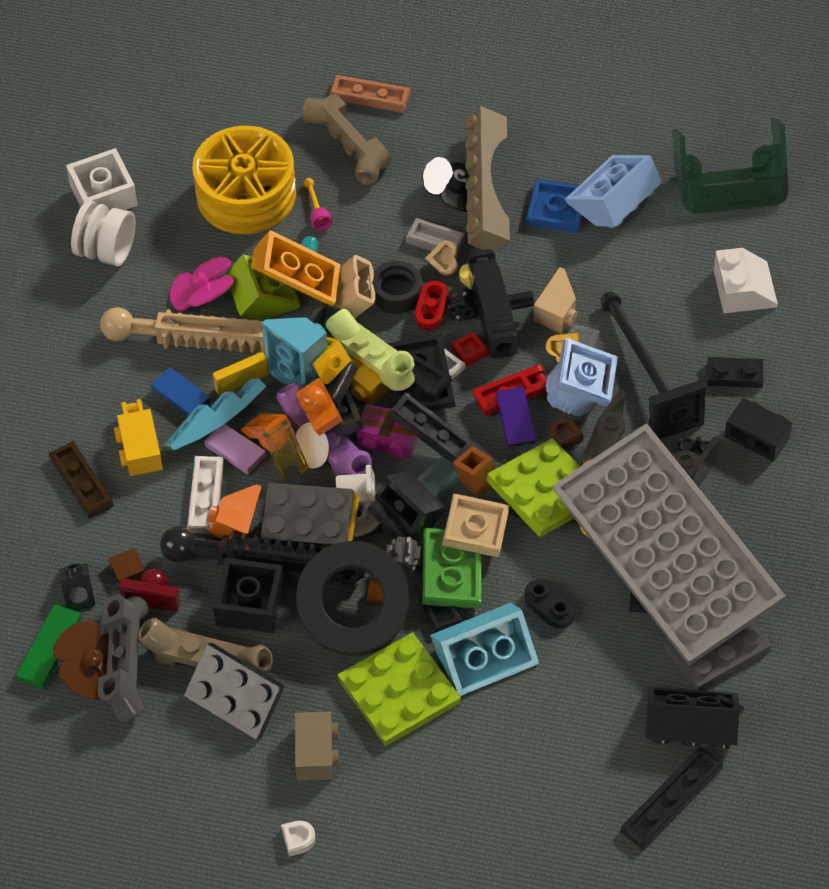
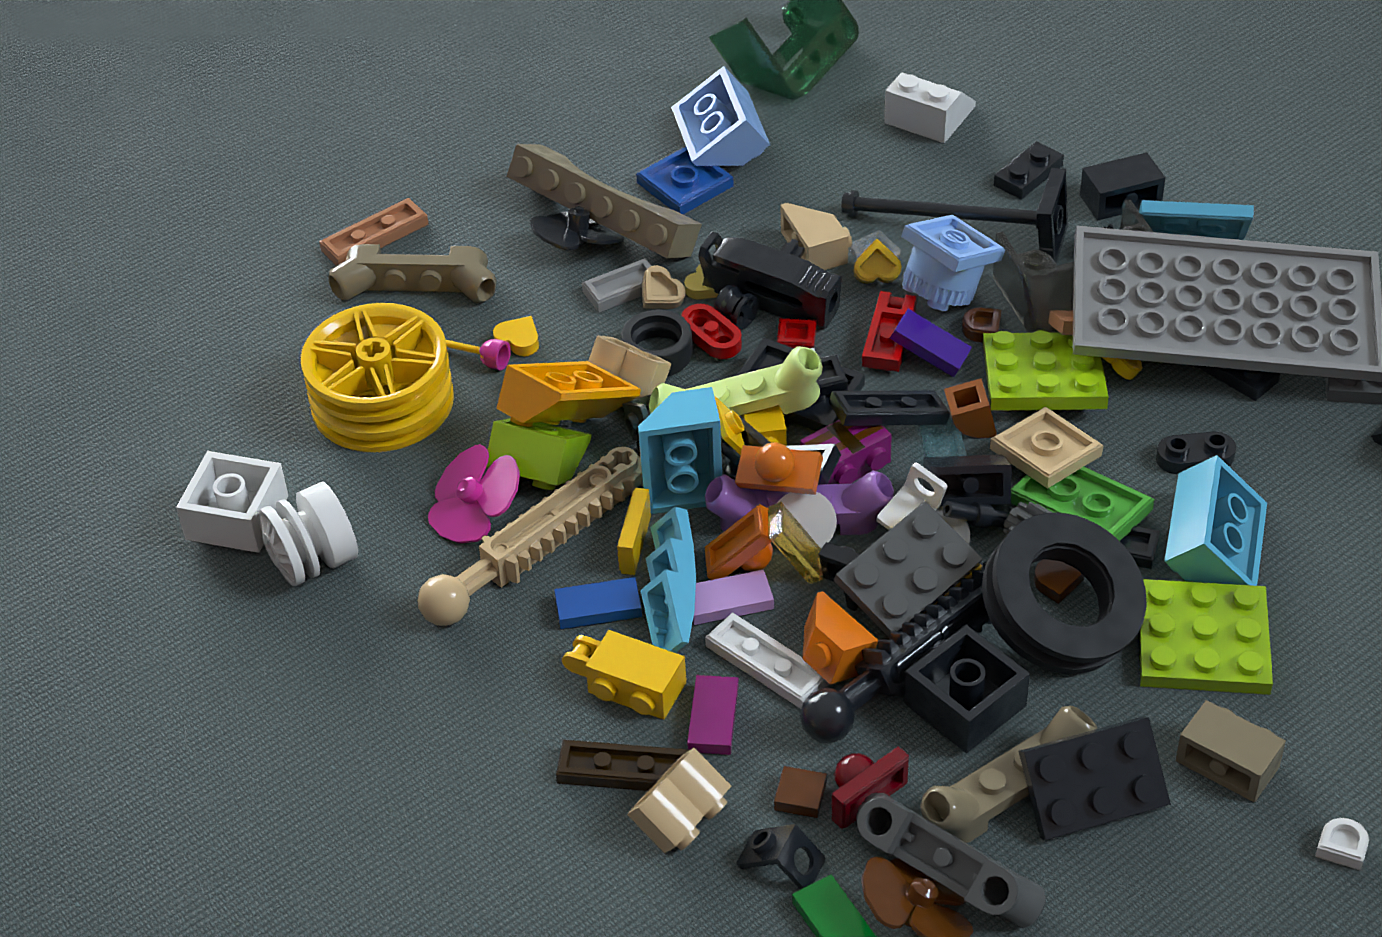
camera: 50 degrees left, 10 degrees down
(68, 516) = (680, 801): none -> tan brick
(147, 495) = (713, 714): none -> magenta tile
(348, 219) = (519, 334): none -> yellow tile
(747, 484) = (1198, 219): none -> medium azure tile

